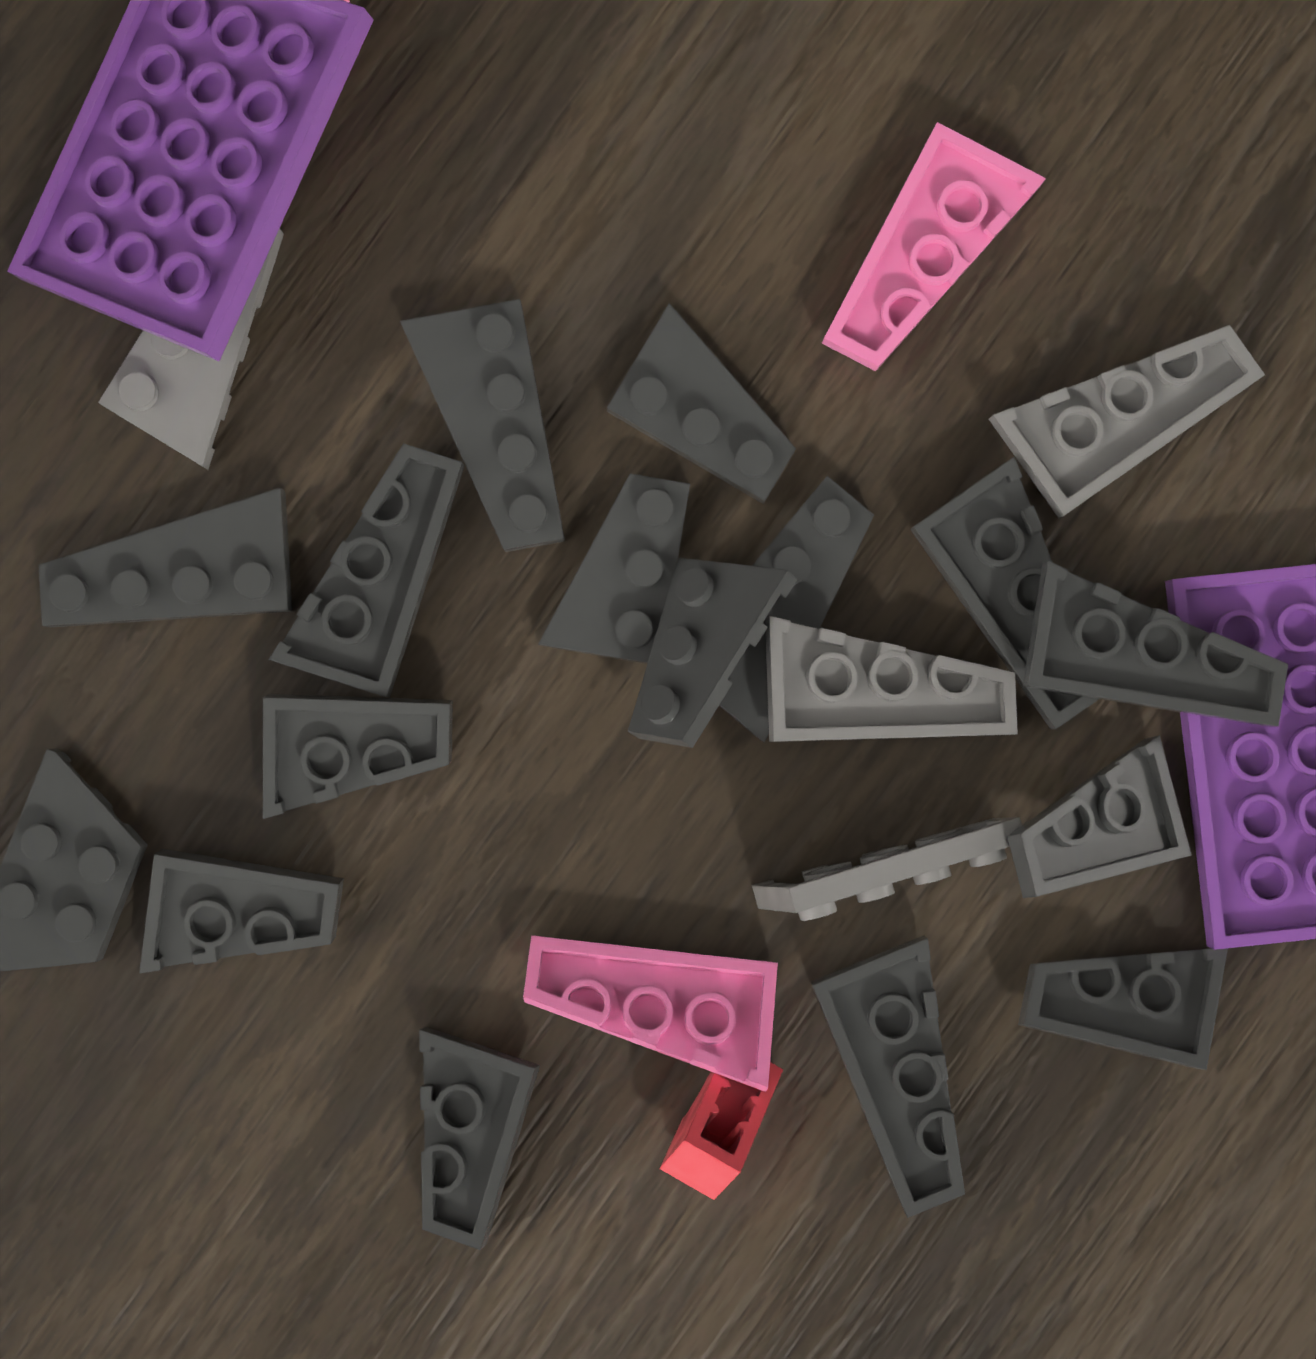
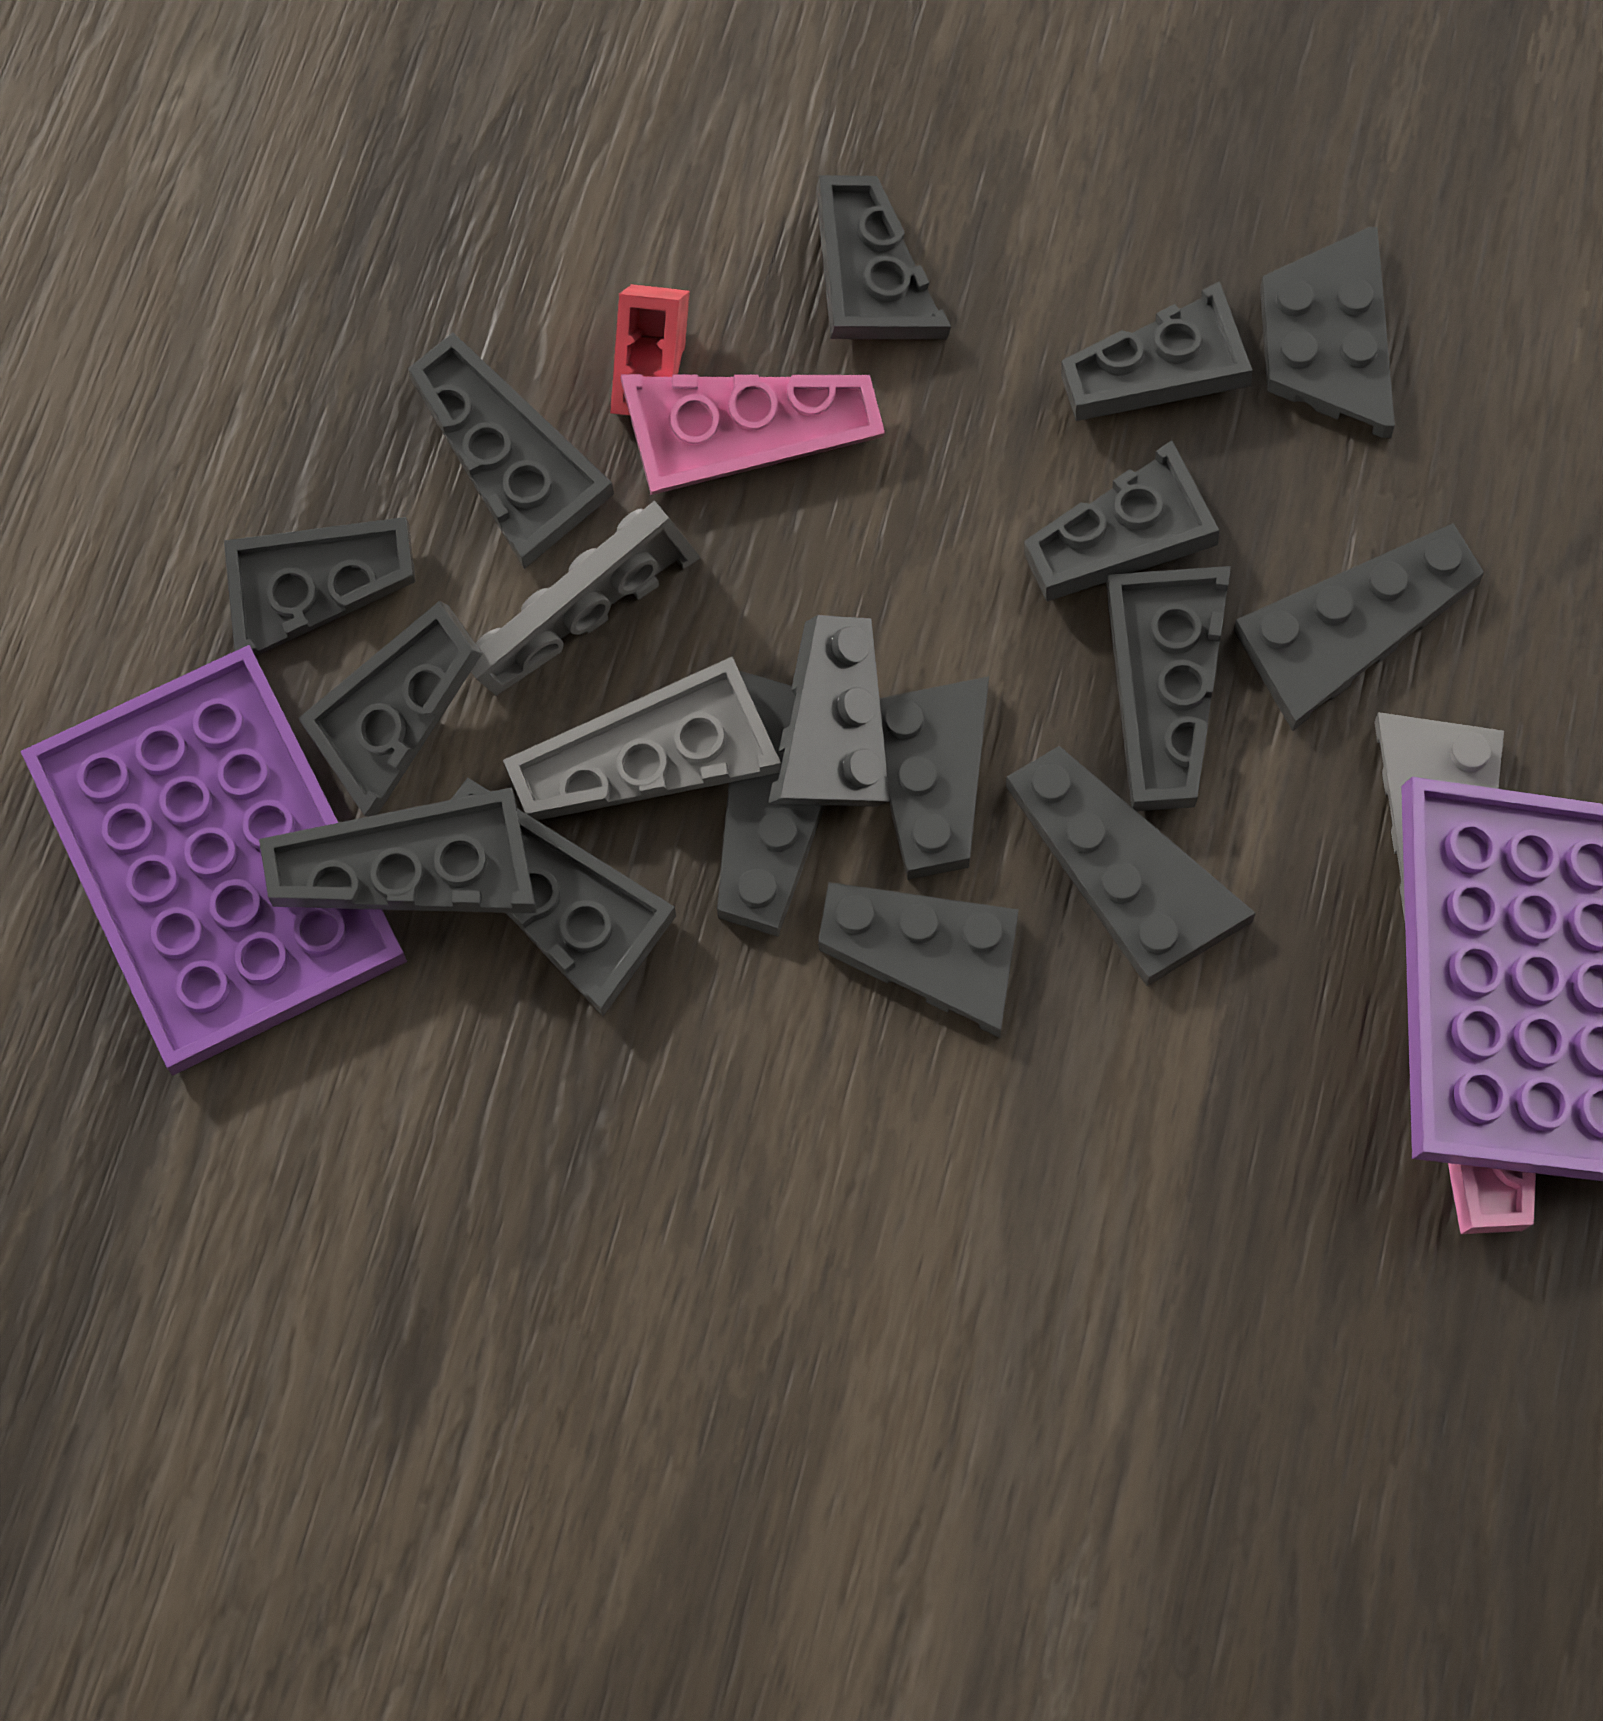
camera: 165 degrees right, 20 degrees down
(934, 232) = (763, 1209): bright pink wing -> none
(1107, 425) = (509, 1089): light grey wing -> none

